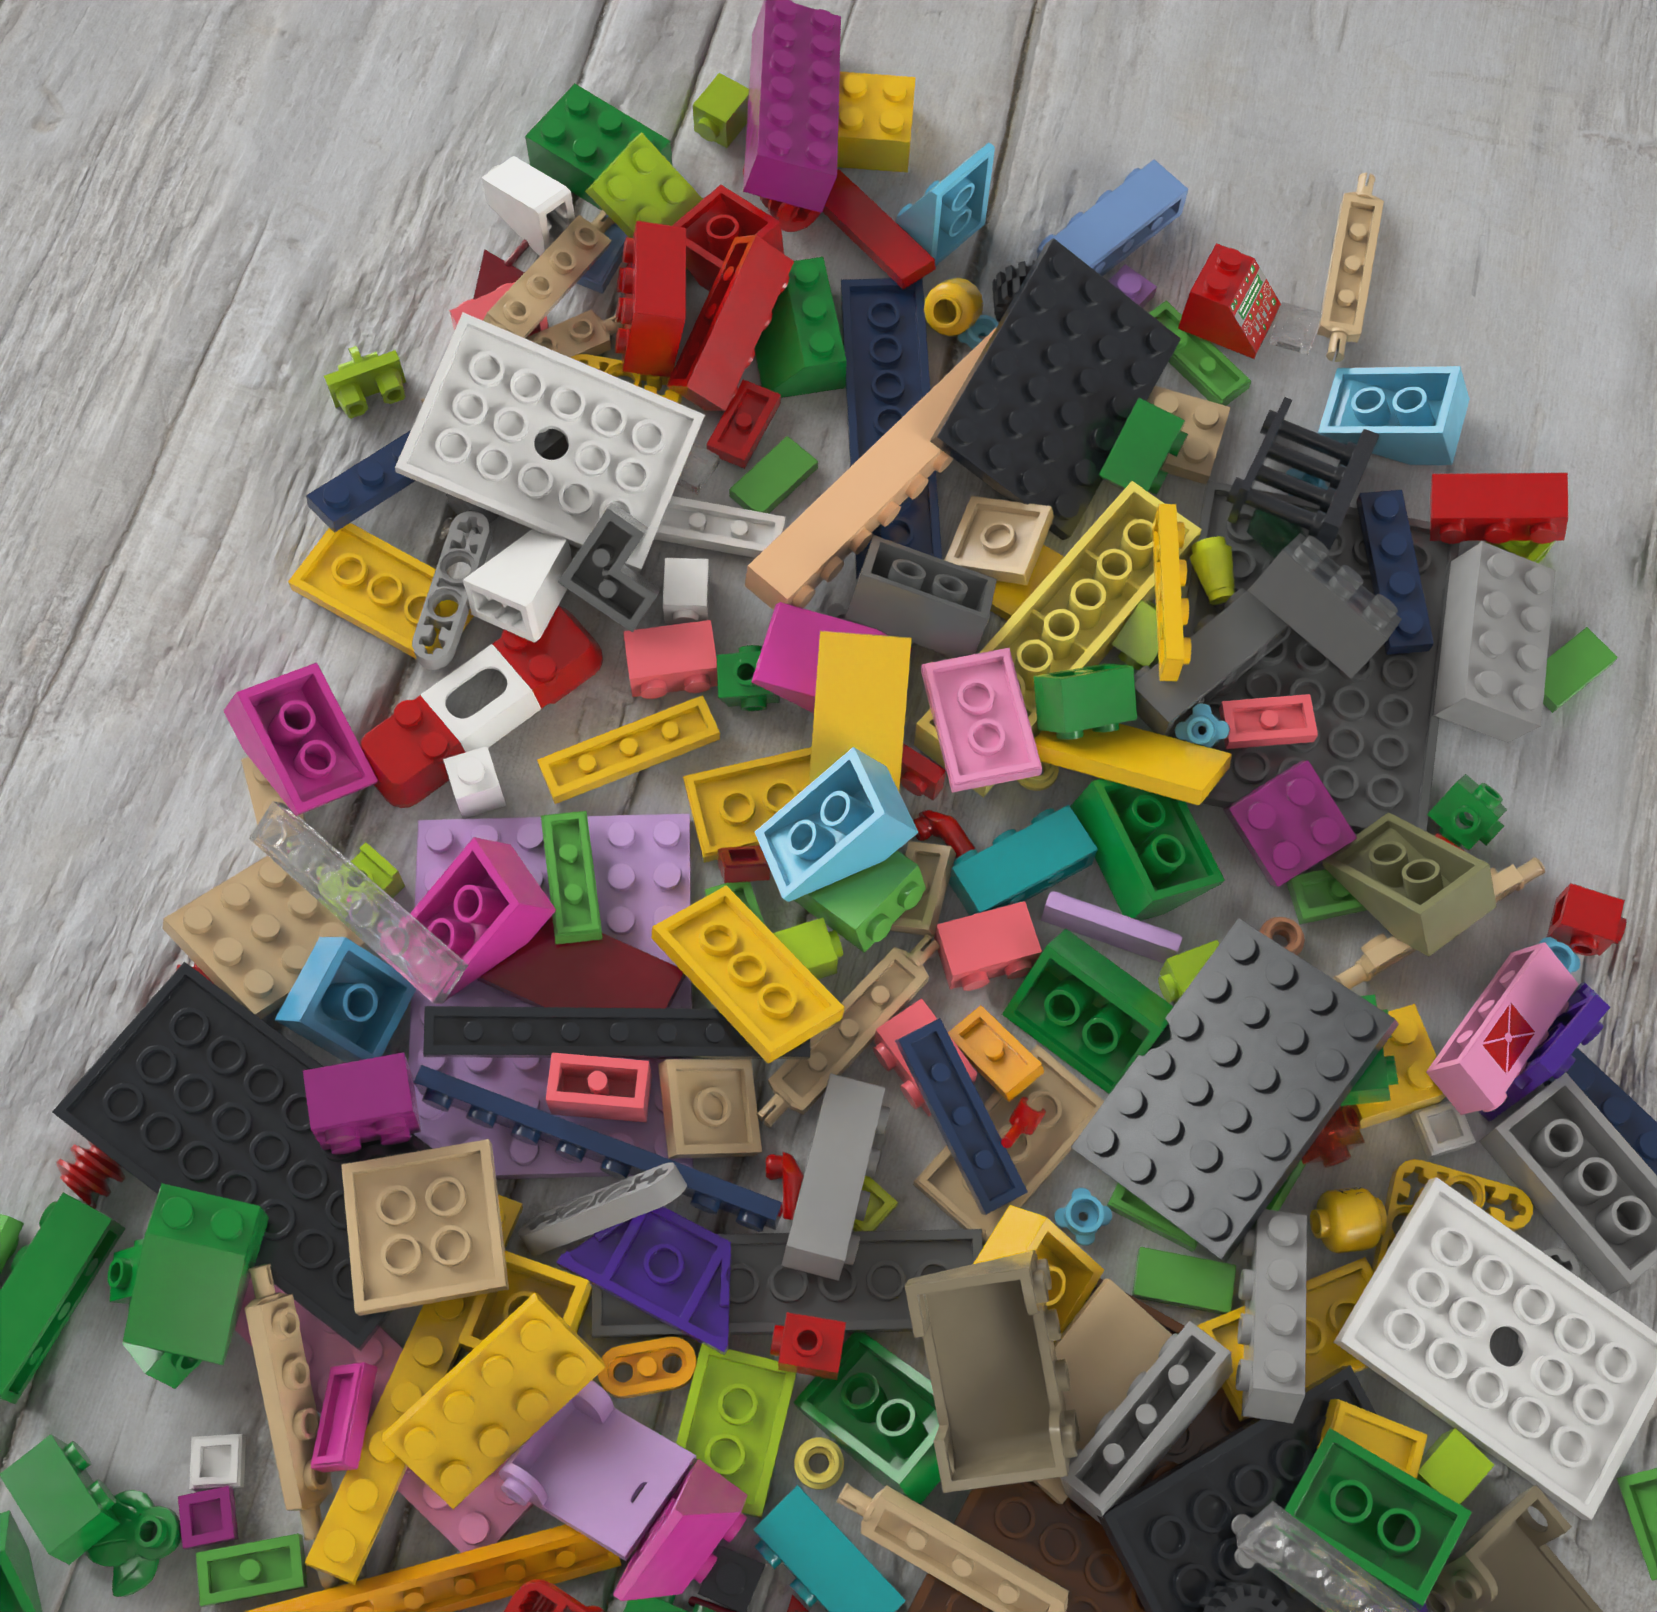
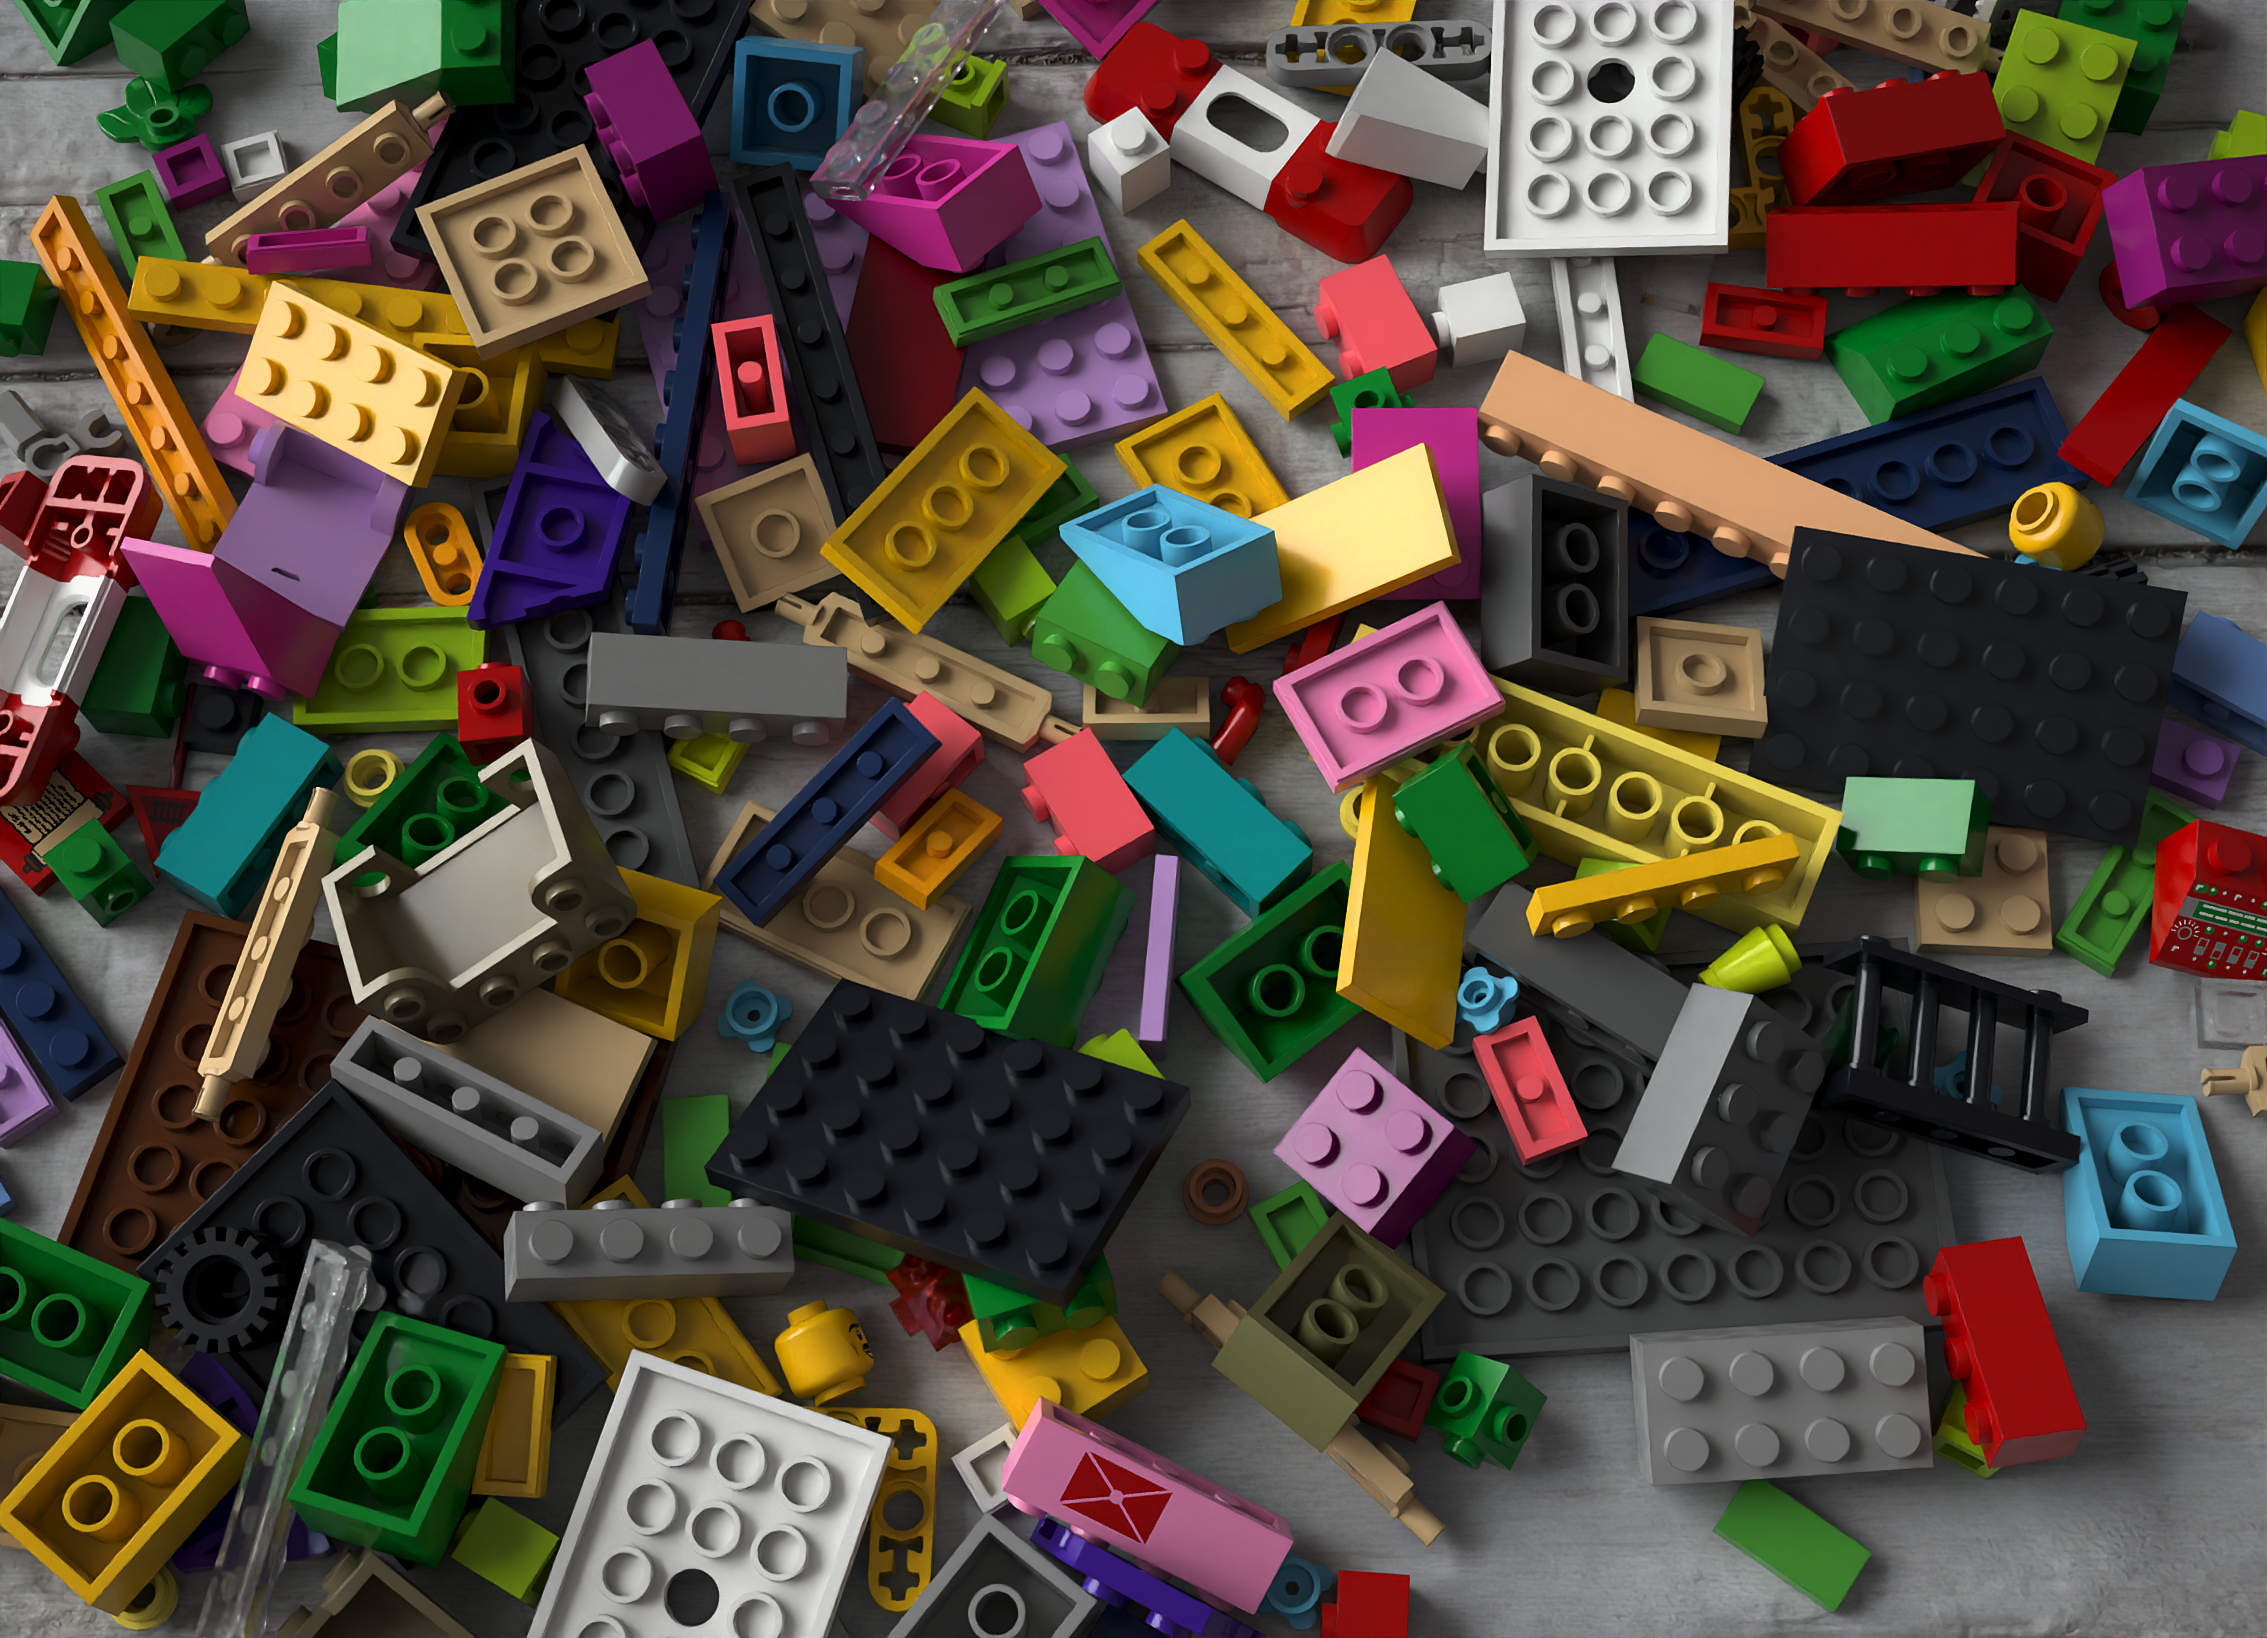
camera: 80 degrees right, 0 degrees up
(600, 570) = (1443, 197): dark grey brick -> none
(743, 864) = (1107, 479): dark red tile -> none
(1023, 1121) = (850, 901): red hand -> none
(1395, 568) = (1850, 1230): dark blue plate -> none

